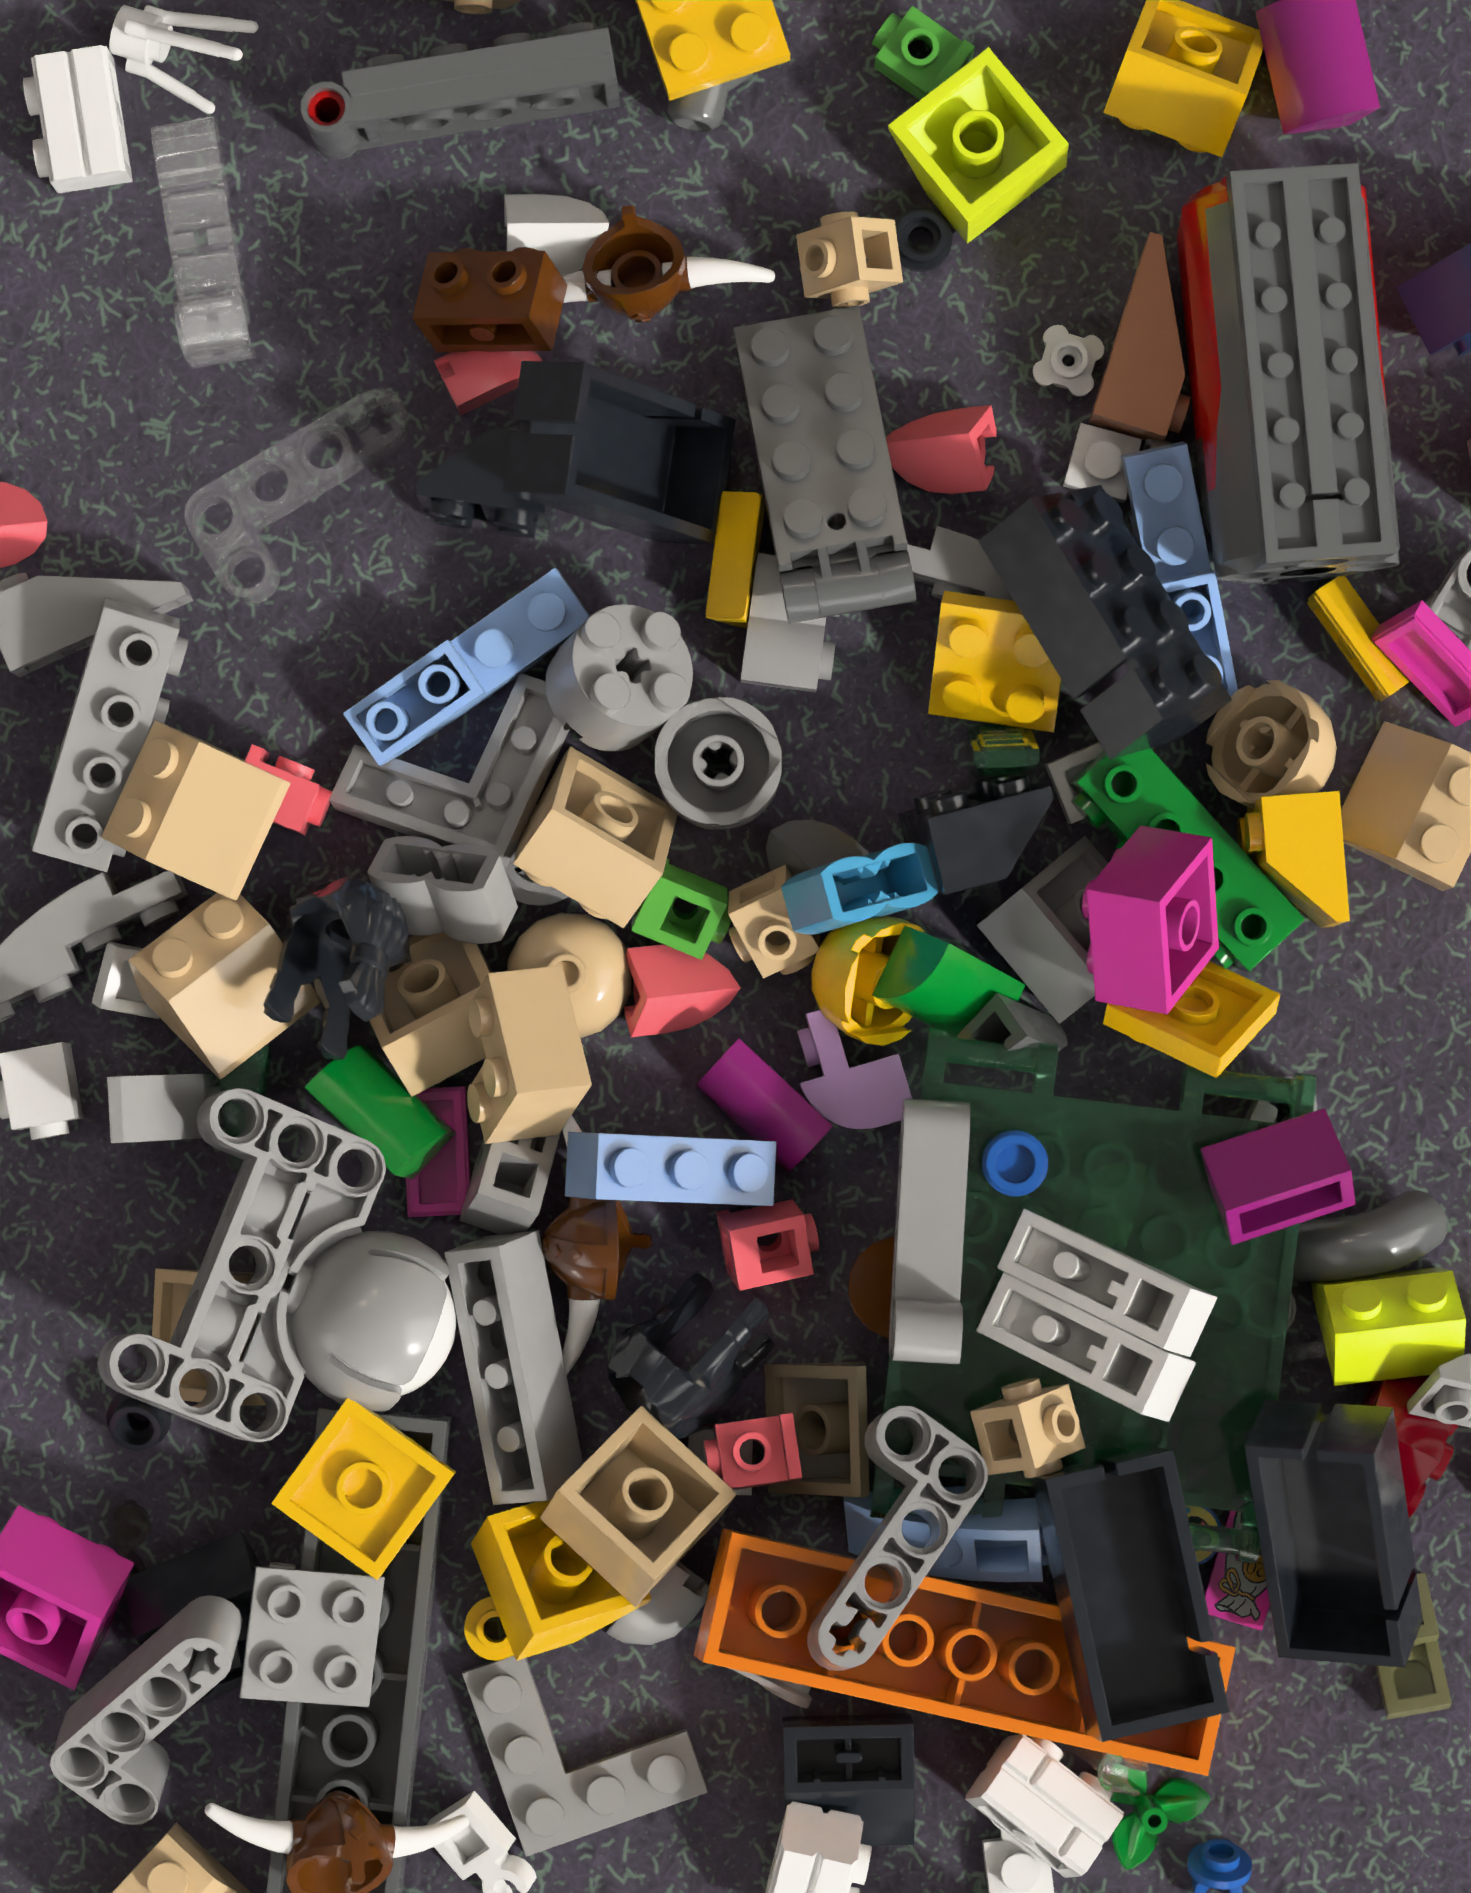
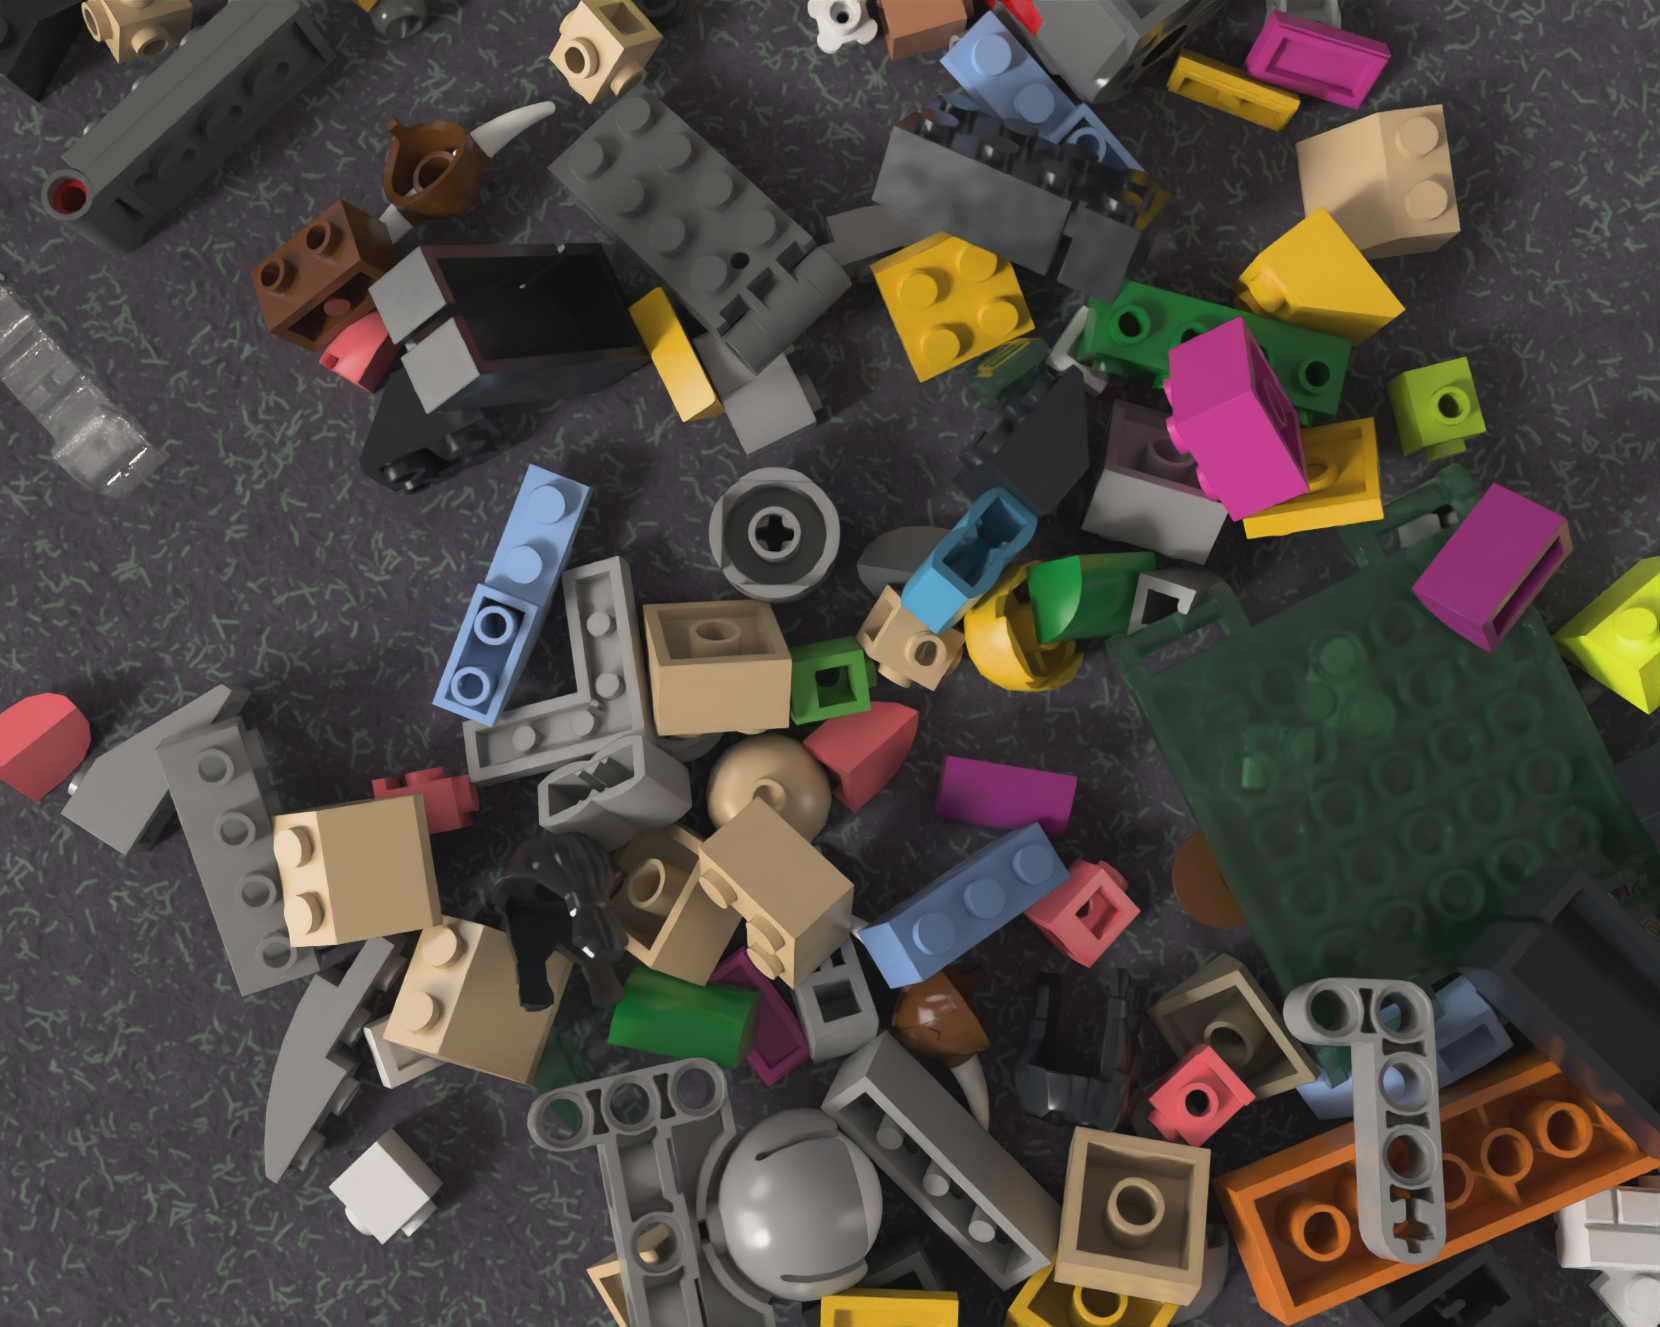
camera: 30 degrees left, 0 degrees up
(157, 1107) = (488, 1151): light grey slope -> none
(304, 484) = (277, 534): clear beam -> none
(554, 225) = (352, 177): white brick -> none
(620, 676) = (645, 517): light grey brick -> none
(852, 1096) = (1071, 740): lavender brick -> none
(929, 1232) = (1274, 889): light grey beam -> none
(945, 450) = (793, 155): coral brick -> none
(1014, 1163) = (1259, 706): blue tile -> none
(1028, 1429) = (1431, 930): tan brick -> none
(1086, 1348) = (1430, 825): white slope -> none
(1098, 460) = (921, 78): white plate -> none
(1107, 1283) = (1411, 758): white slope -> none
(1270, 744) = (1225, 215): tan cylinder -> none
(1343, 1024) = (1436, 409): none -> lime brick
(1370, 1240) = (1593, 572): dark grey cylinder -> none

